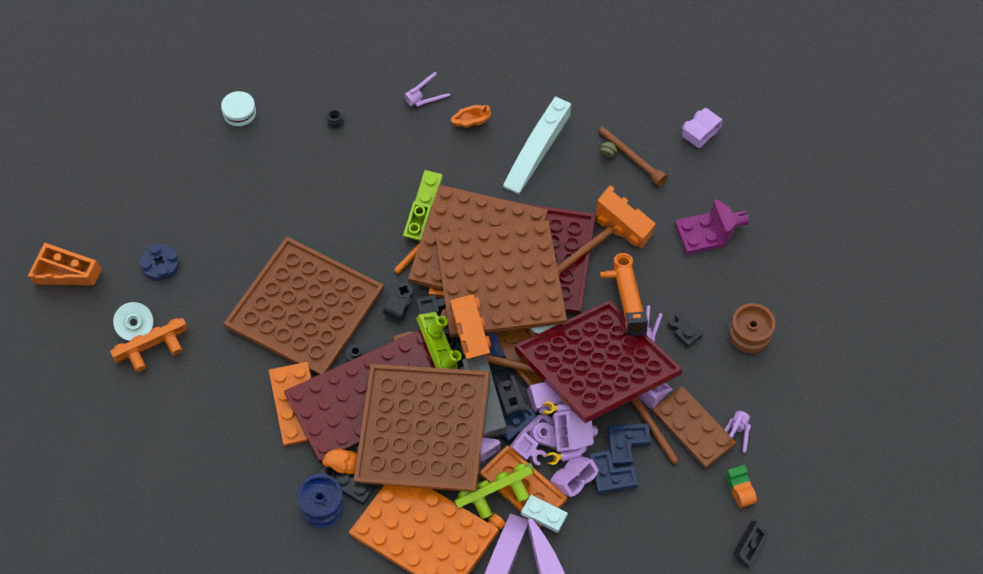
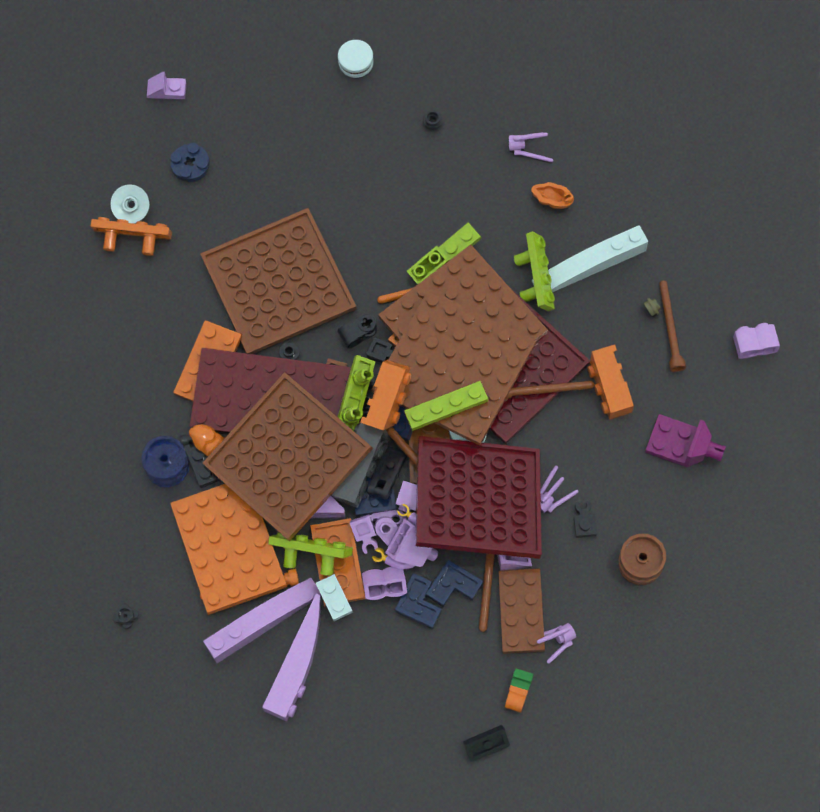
camera: 40 degrees right, 10 degrees up
(63, 267) = (106, 117): orange wedge -> none
(93, 219) = (166, 88): none -> lavender slope
(494, 163) = (541, 276): none -> lime plate
(520, 307) = (446, 405): none -> lime plate
(635, 319) = (548, 468): orange piece -> none

